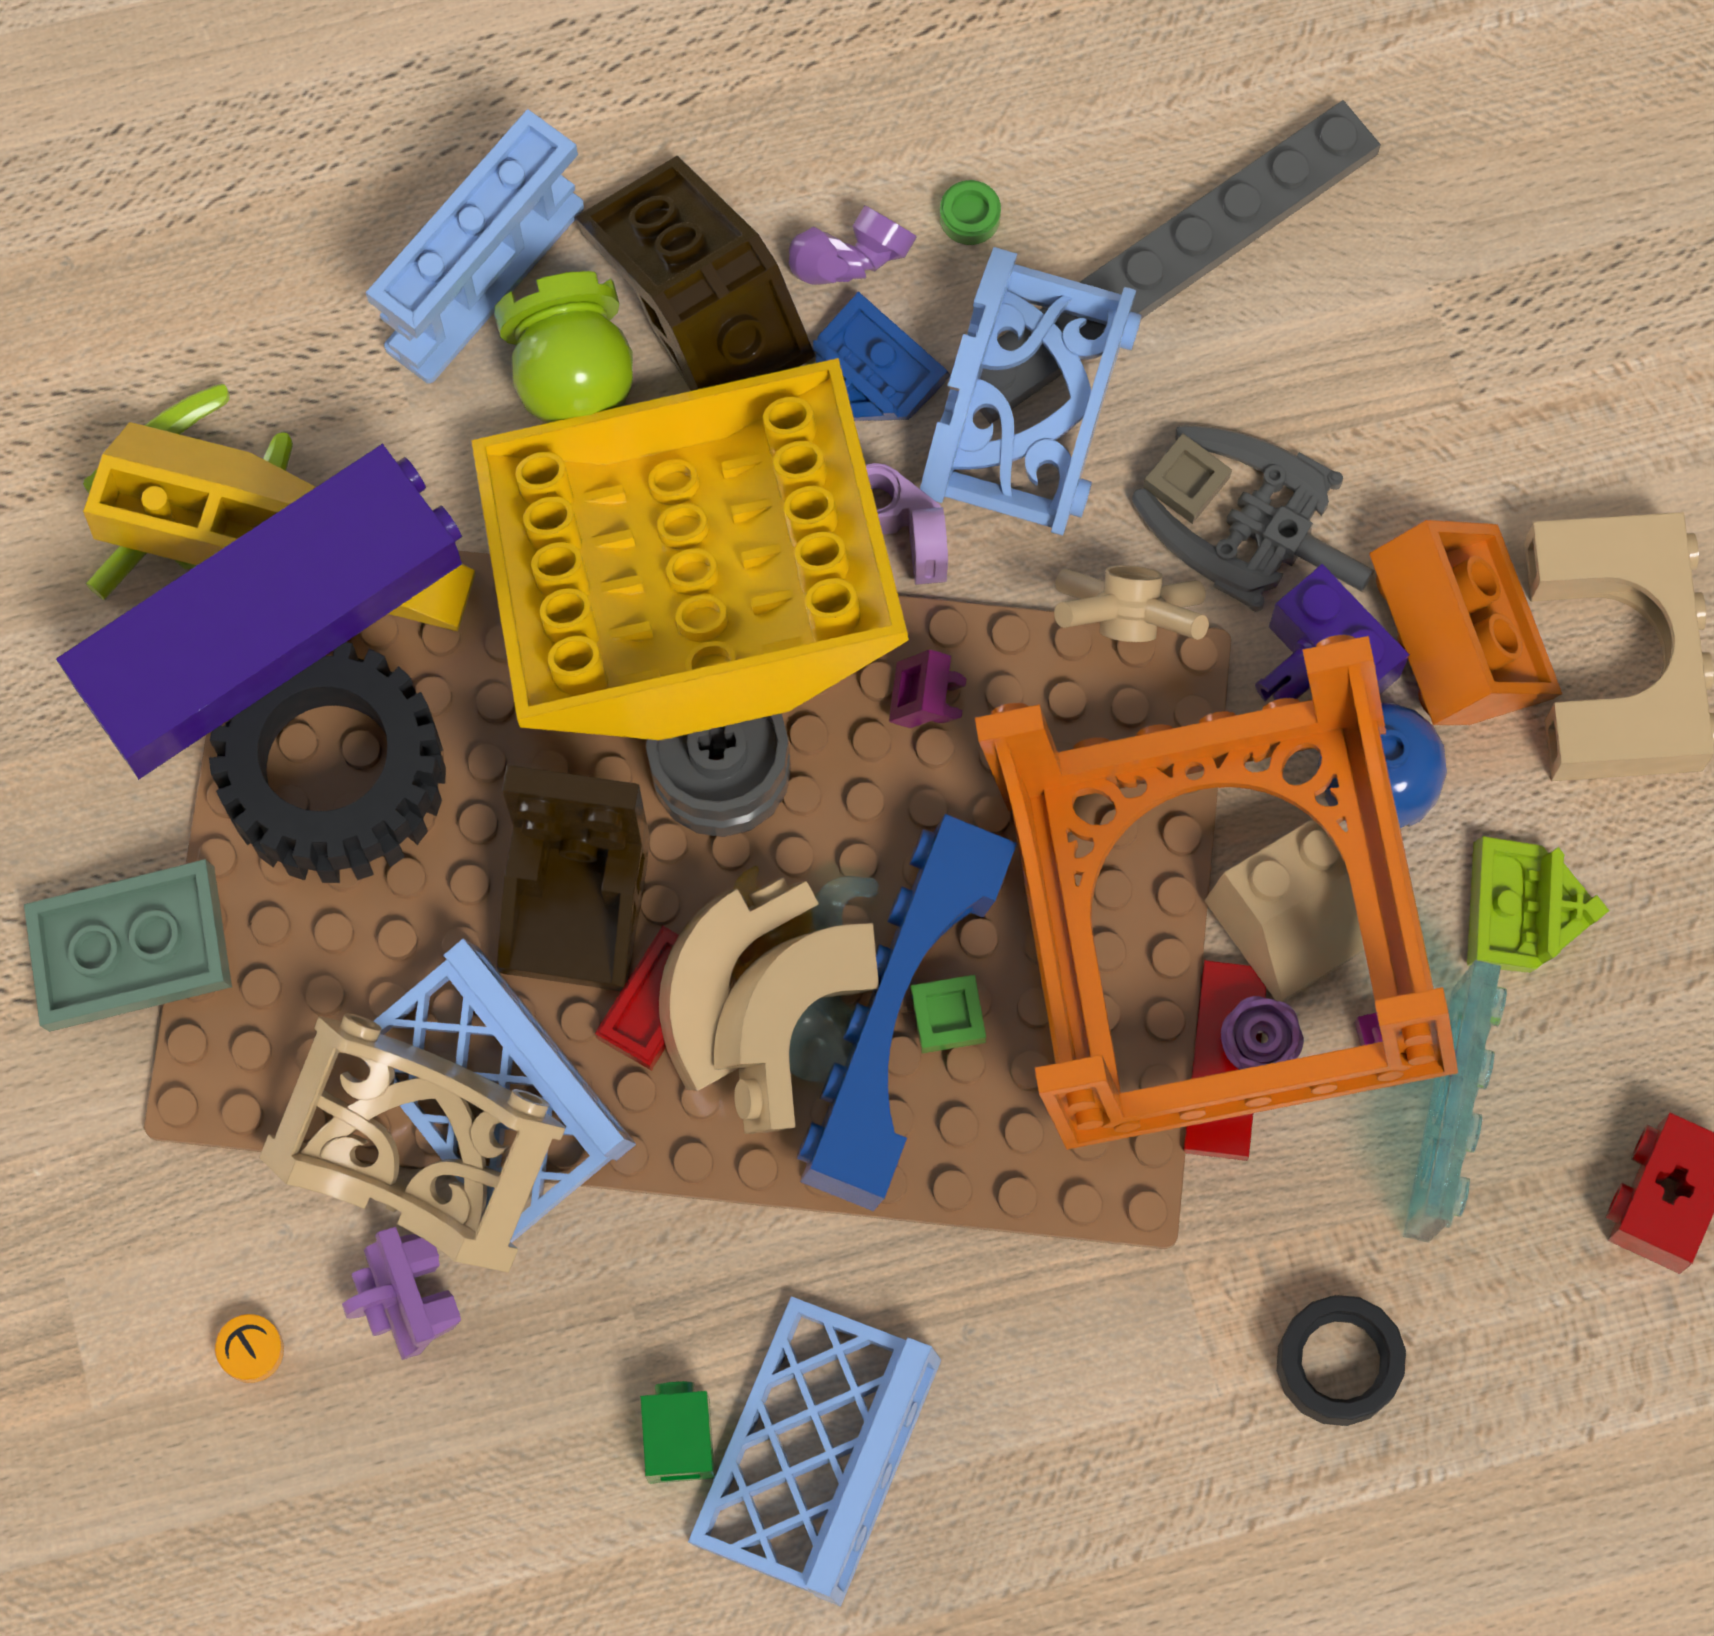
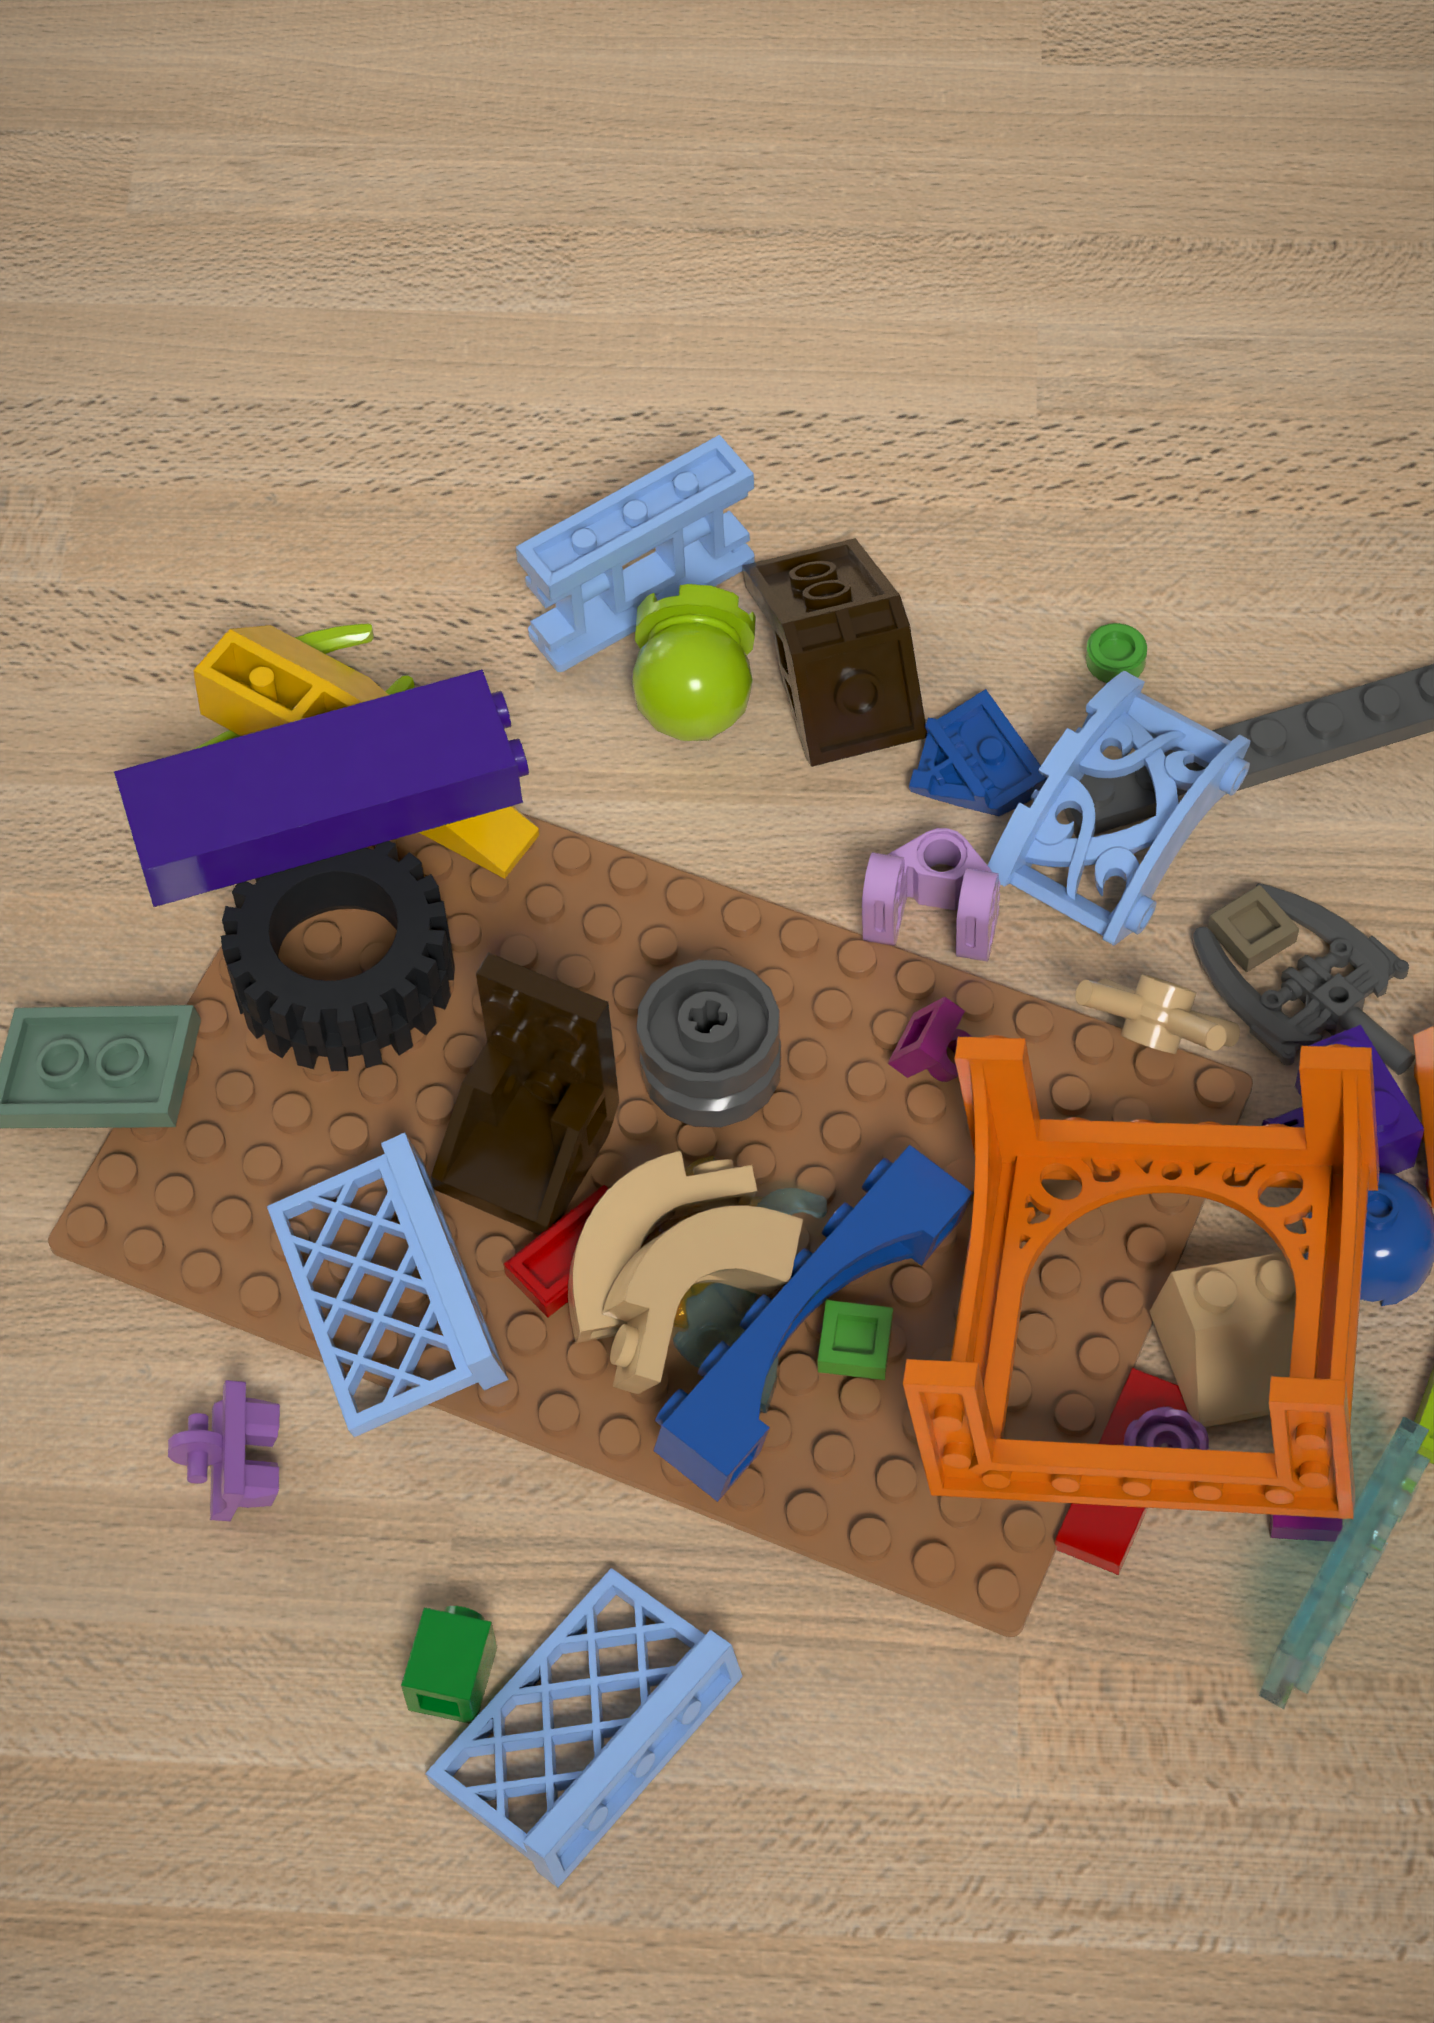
camera: 20 degrees right, 15 degrees down
(249, 1348) = (68, 1464): light orange tile -> none
(329, 1160) = (332, 1389): tan fence -> none
(687, 557) = (733, 851): yellow slope -> none
(824, 259) = (964, 655): medium lavender arm -> none
(1363, 1315) = (1171, 1742): black tyre -> none

